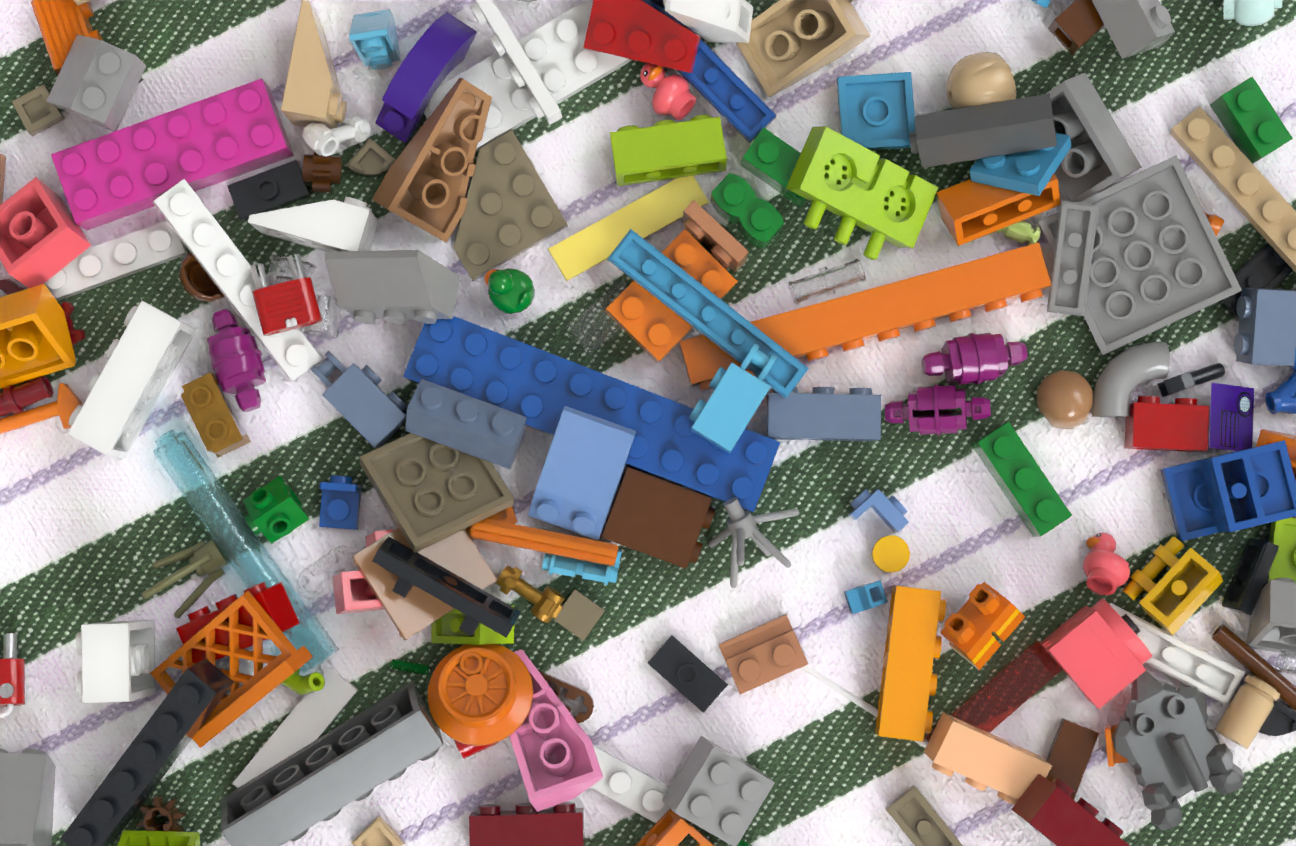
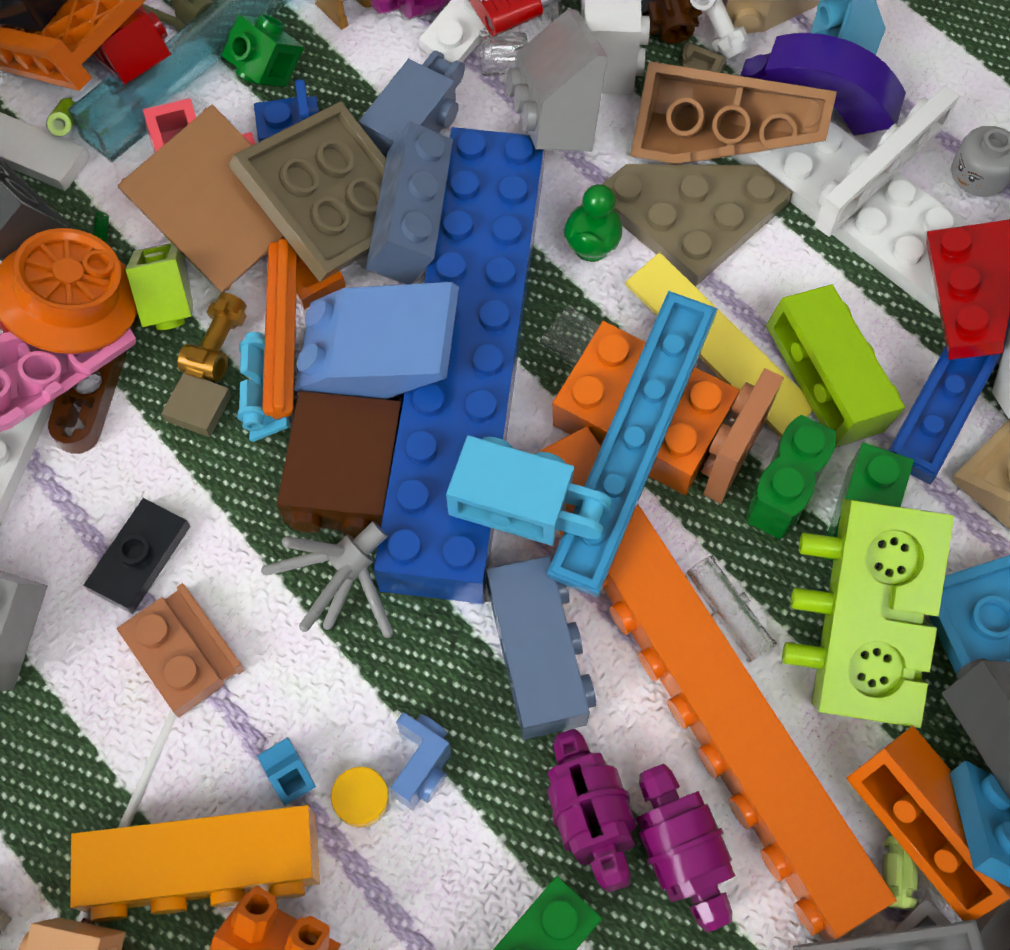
camera: 75 degrees right, 20 degrees down
(445, 586) = (187, 206): black hinge -> none
(671, 92) = (910, 346): coral animal -> none

